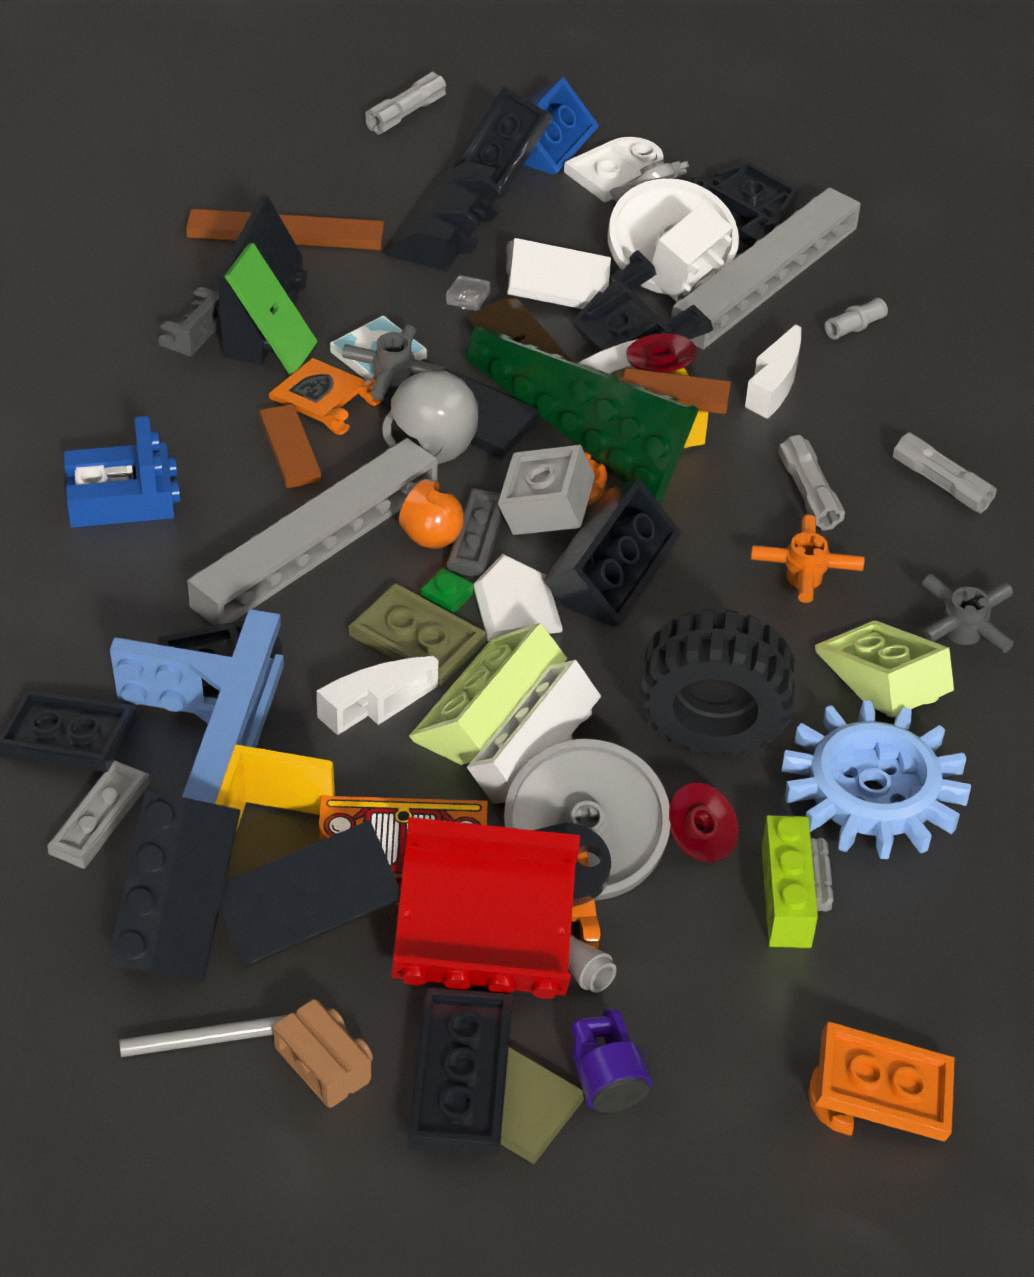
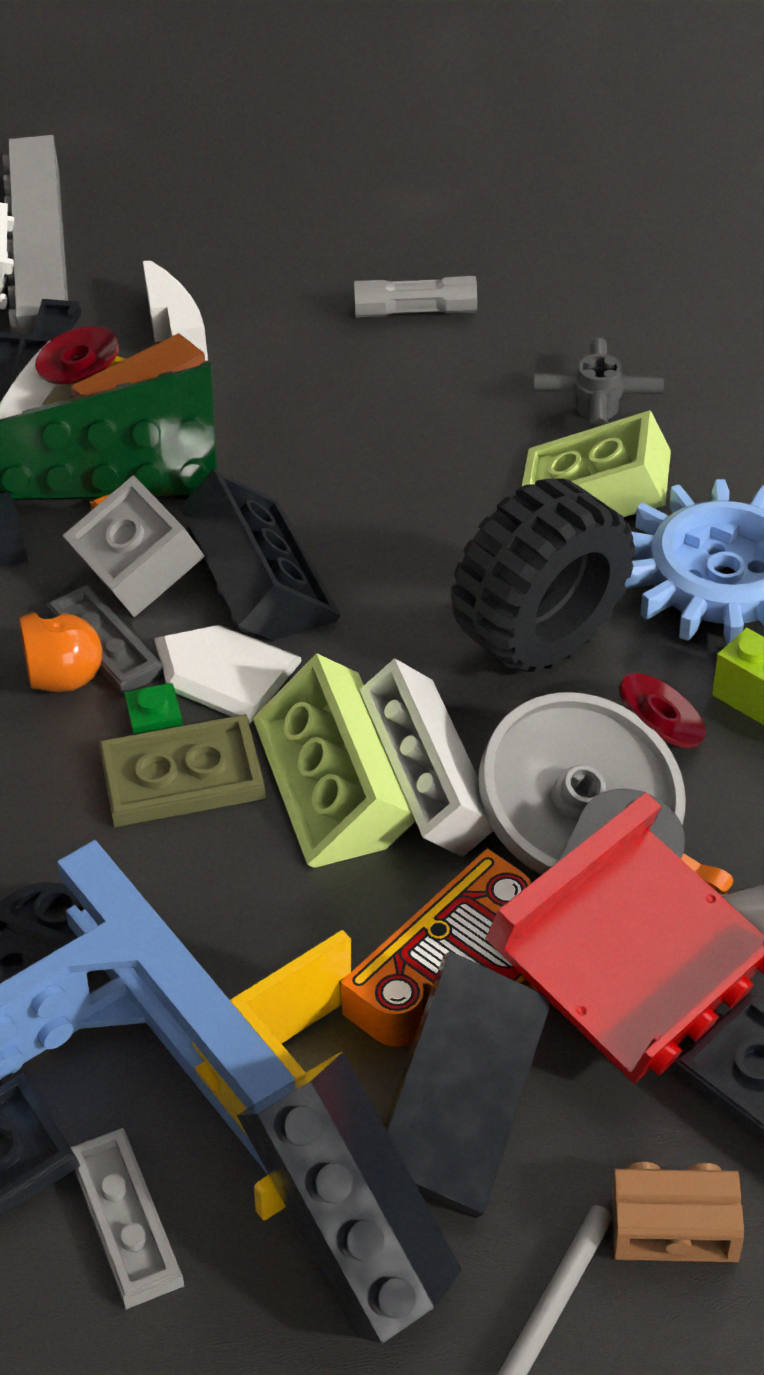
camera: 45 degrees left, 0 degrees up
(376, 692) = (229, 853): white slope -> none
(807, 559) = (421, 438): orange bar -> none
(818, 497) = (329, 379): light grey axle -> none
(856, 318) = (170, 230): light grey pin -> none

